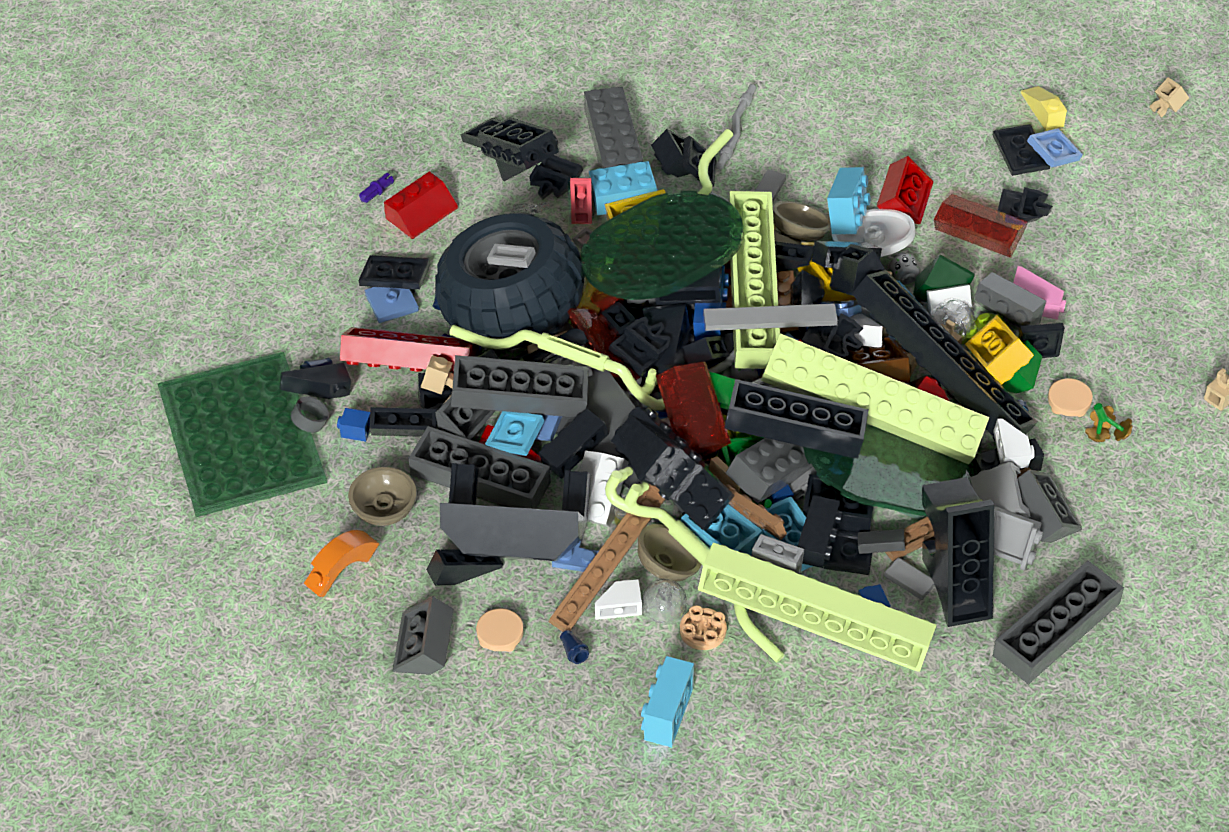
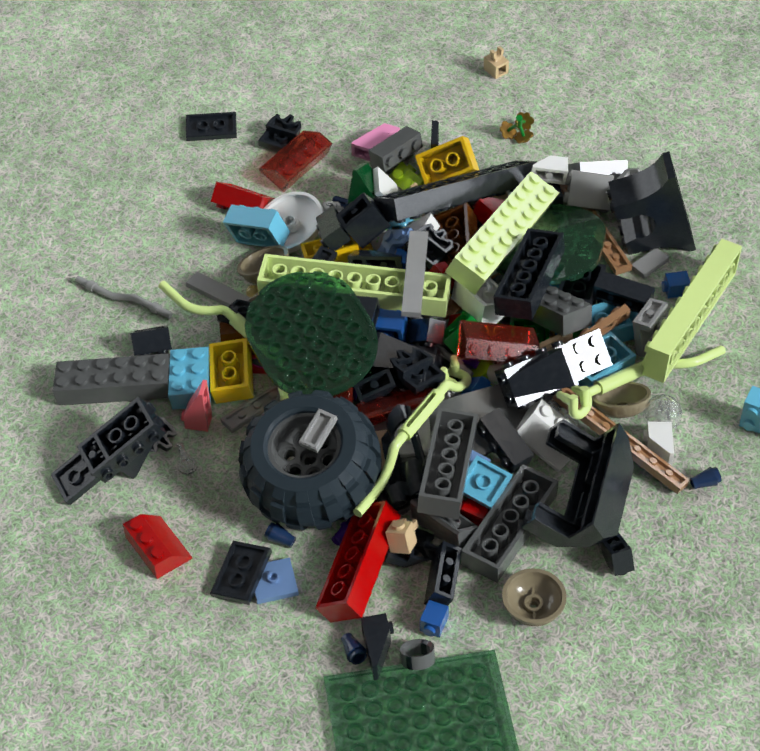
camera: 80 degrees left, 0 degrees up
(337, 555) = (604, 635): orange arch -> none
(376, 188) = (117, 579): dark purple axle -> none
(423, 638) = (692, 586): dark grey slope -> none
(499, 630) = (684, 529): light nougat tile -> none
(691, 156) = (170, 322): black tile -> none
(703, 628) = (690, 393): light nougat tile -> none
(881, 541) = (621, 263): dark grey slope -> none
(958, 312) = (402, 180): clear cylinder -> none
(1046, 107) = (170, 101): light yellow slope -> none
(1054, 148) = (222, 103): medium blue plate -> none
(1057, 622) = (710, 186): dark grey brick -> none
(1069, 397) = (486, 144): light nougat tile -> none
(1170, 96) = (187, 31): tan brick -> none

